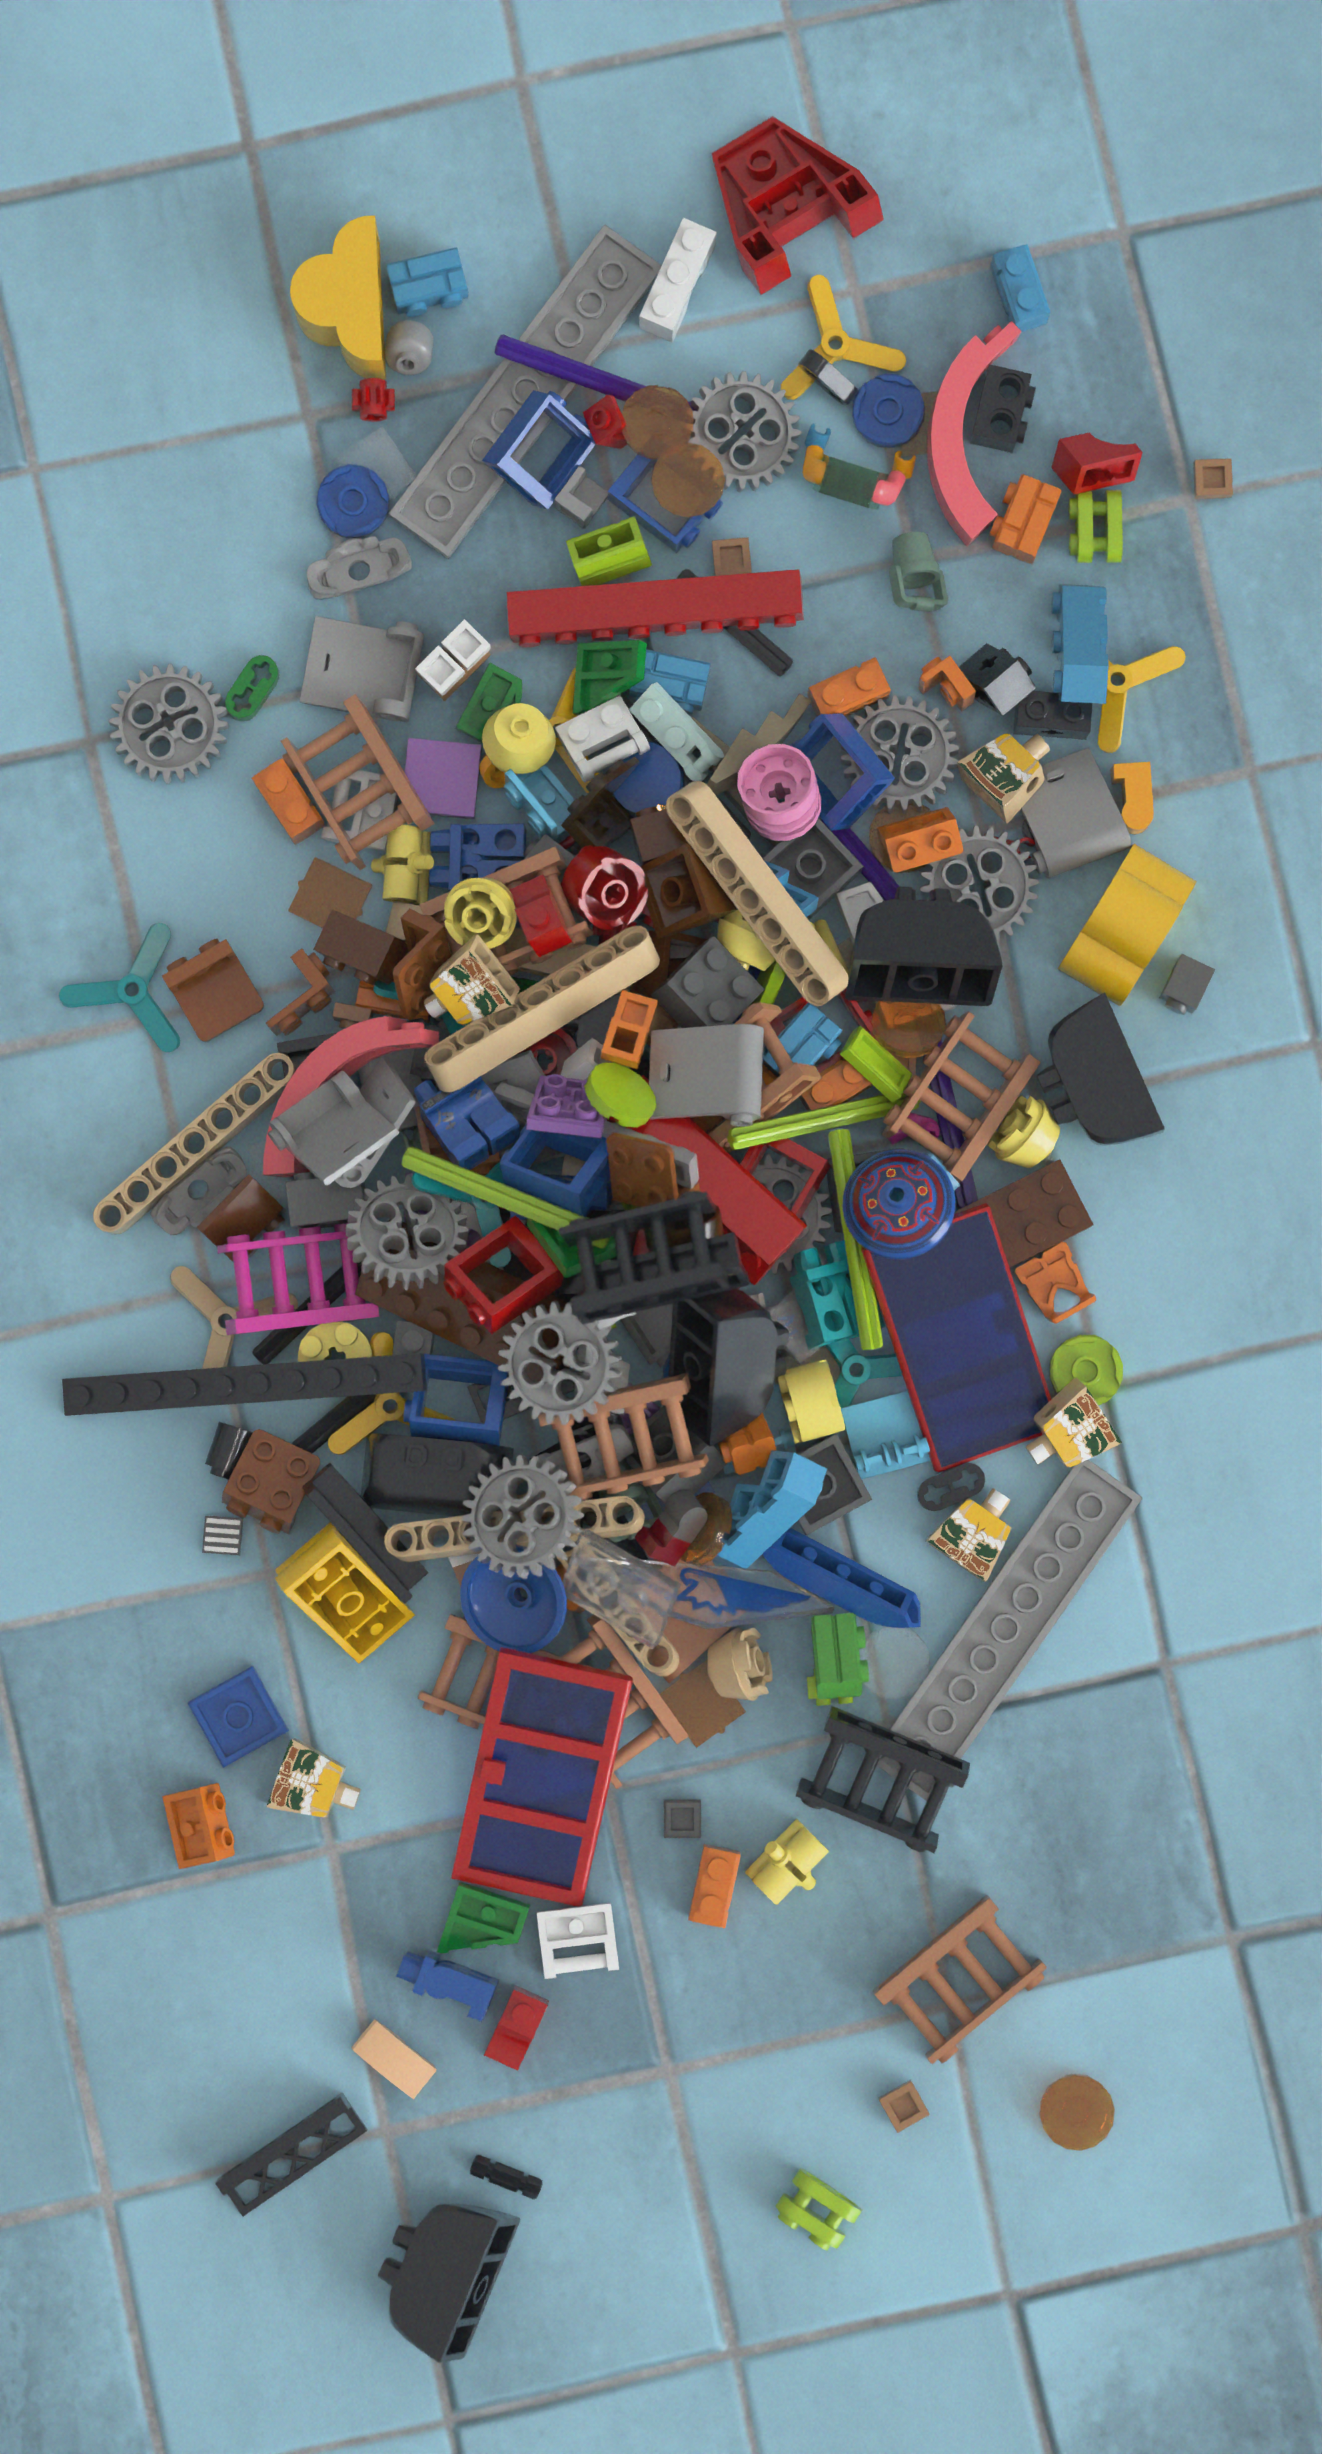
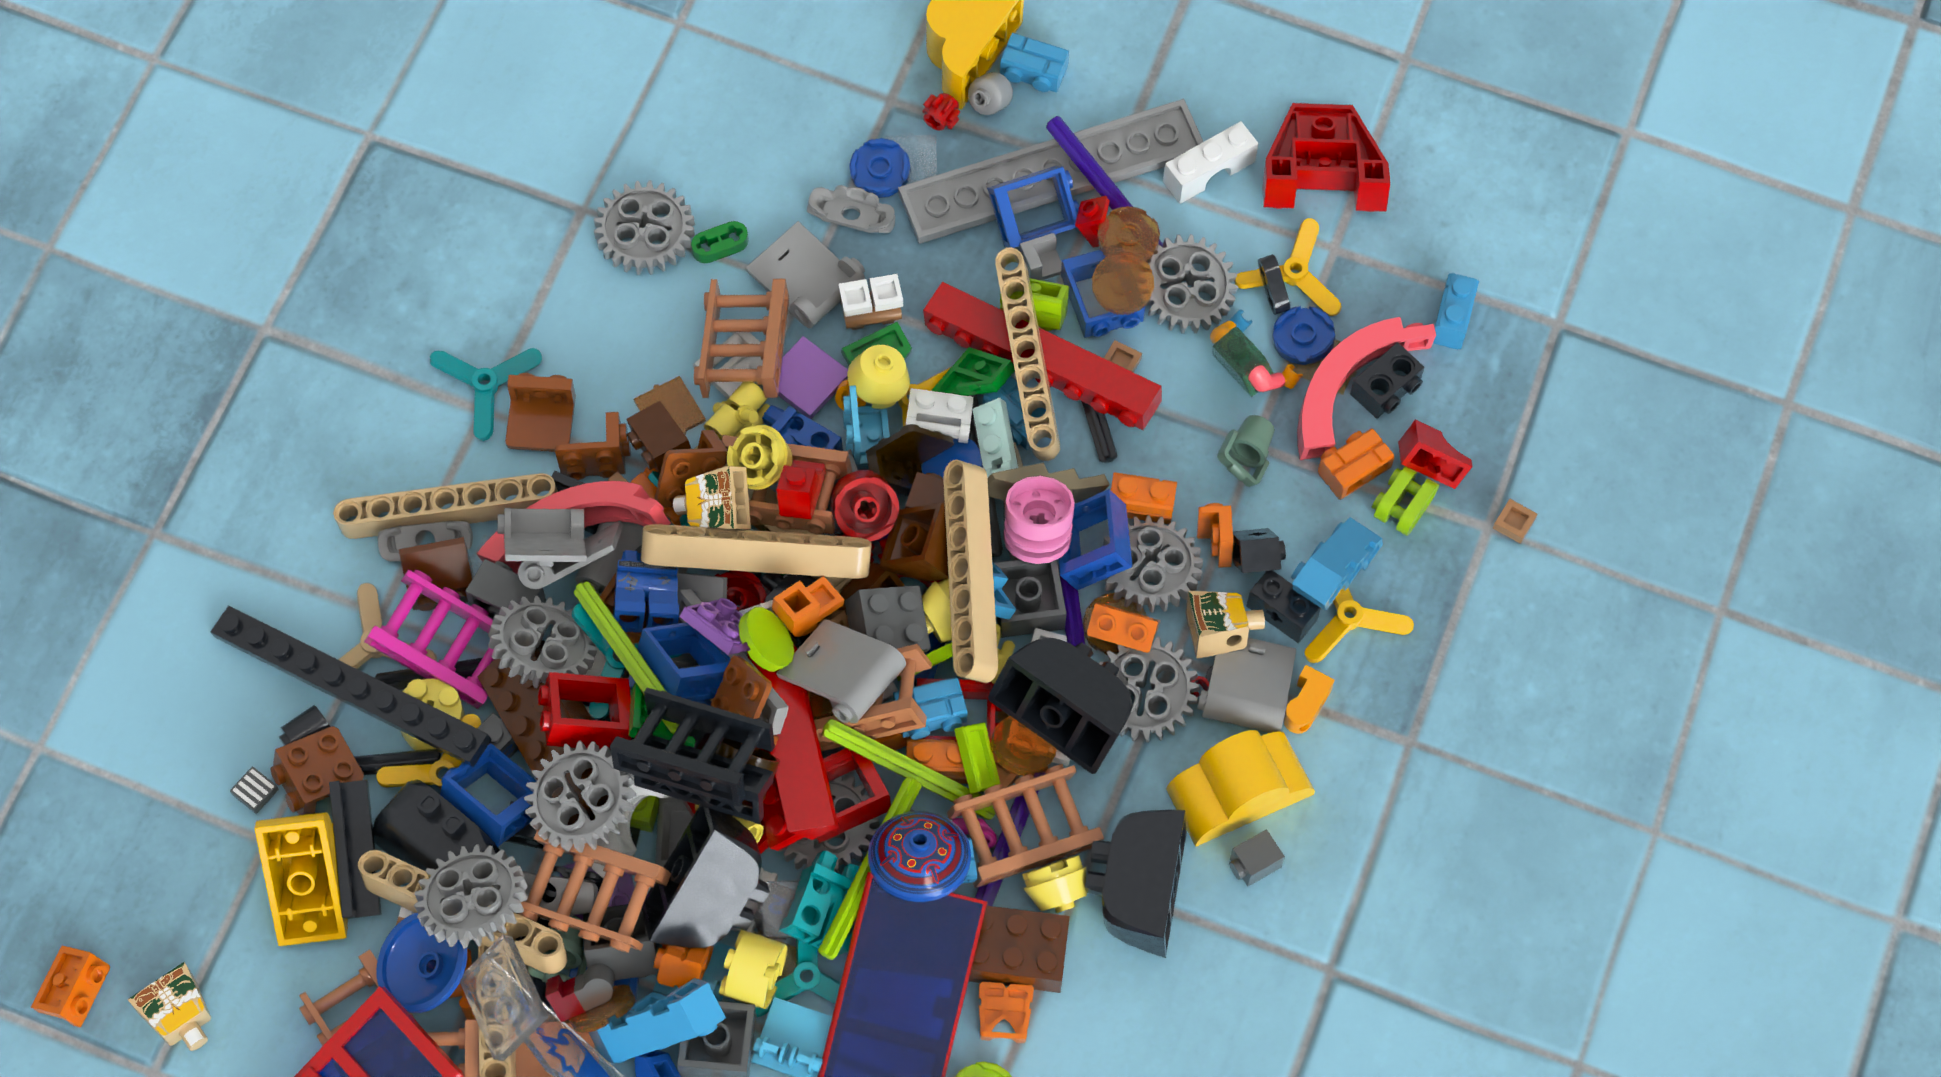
camera: 35 degrees right, 20 degrees down
(238, 1716) = (162, 927): blue tile -> none
(288, 801) = (687, 324): orange brick -> none
(632, 615) = (1027, 367): none -> tan beam

